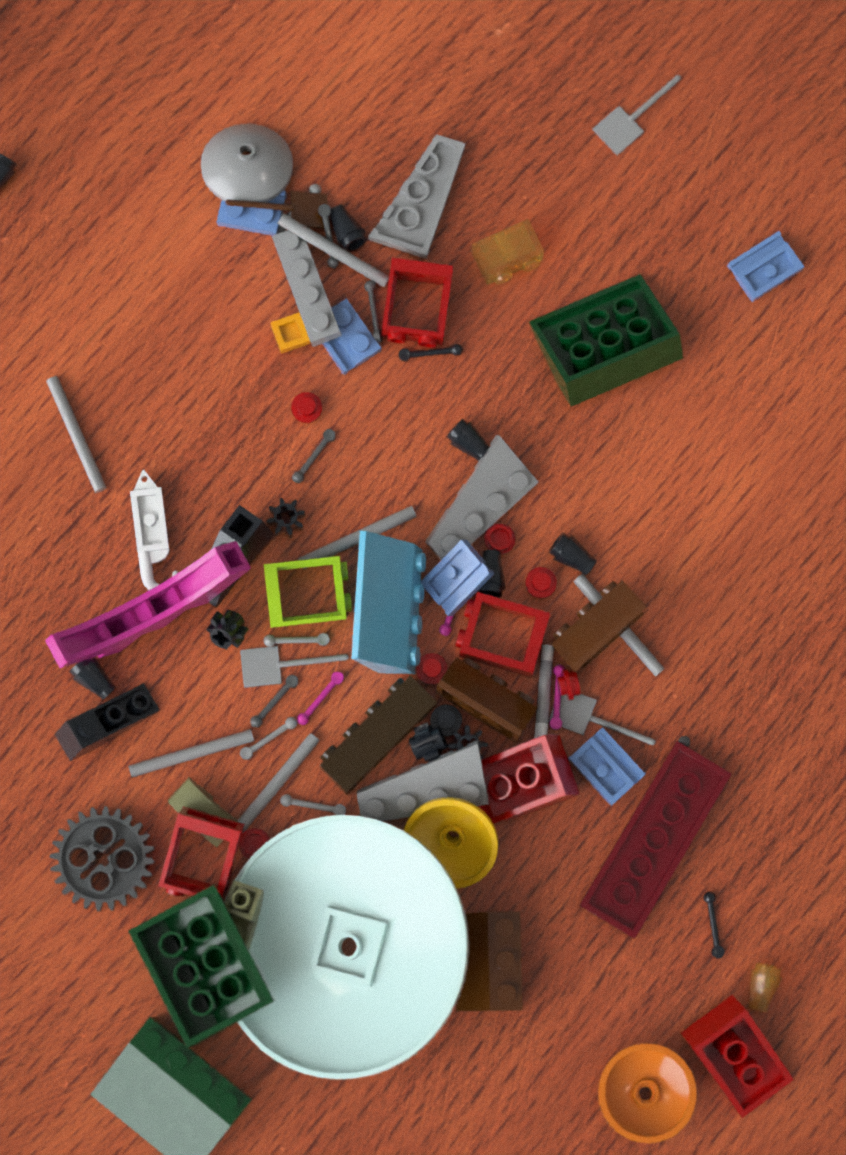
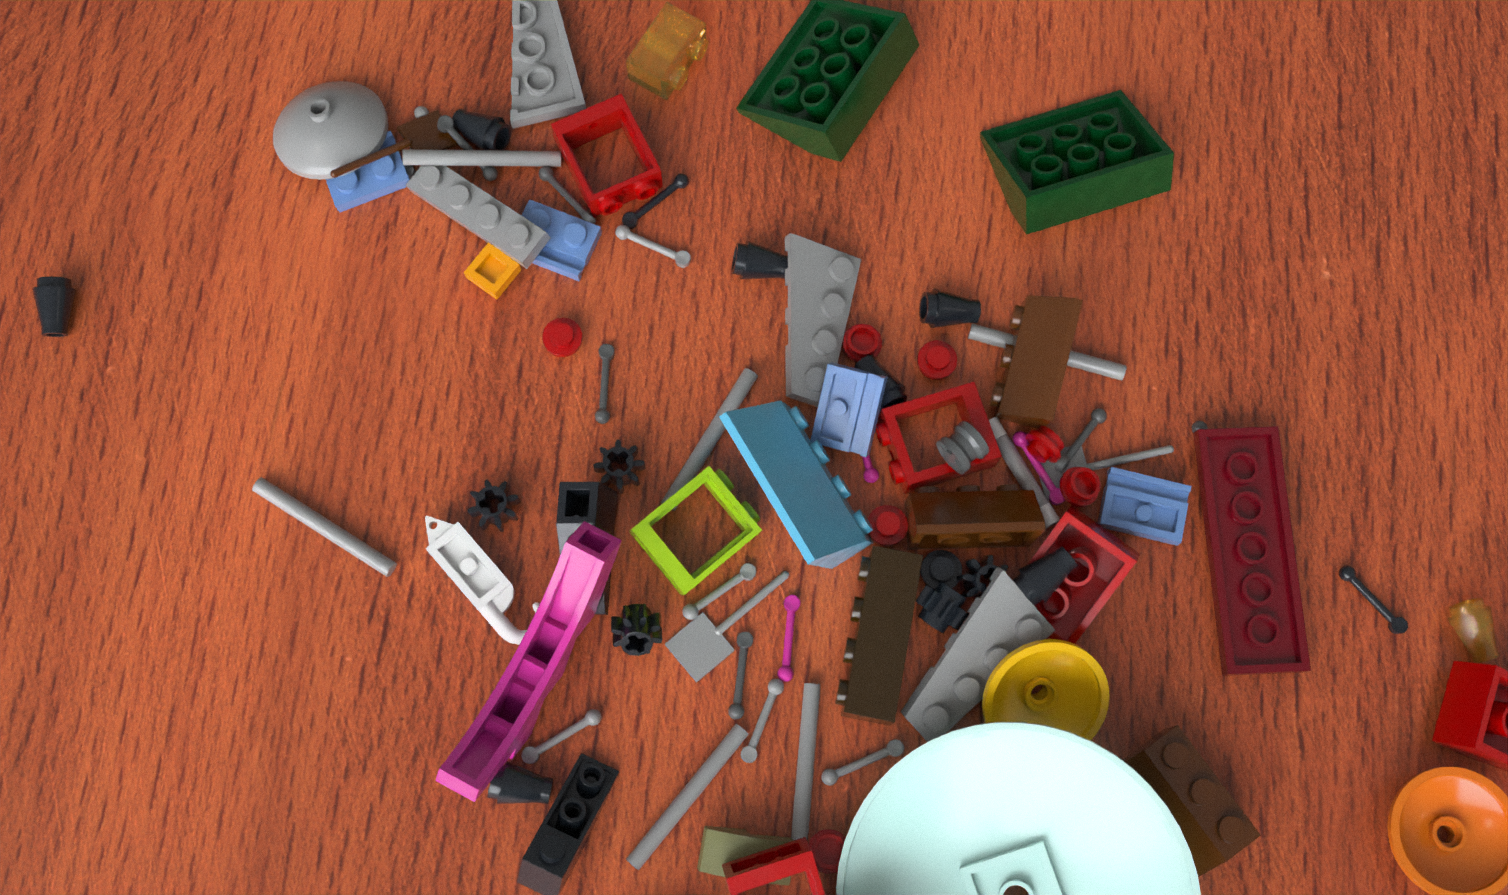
camera: 30 degrees left, 5 degrees down
(112, 664) = (531, 755): none -> light grey hinge
(185, 484) = (483, 503): none -> black gear
(421, 403) = (681, 258): none -> light grey hinge
(501, 765) = (1045, 575): none -> black cone
(507, 650) = (962, 447): none -> dark grey wheel
(572, 726) = (1079, 486): none -> red plate
(622, 690) = (1097, 417): none -> dark grey hinge
(732, 508) = (1078, 161): none -> dark green slope

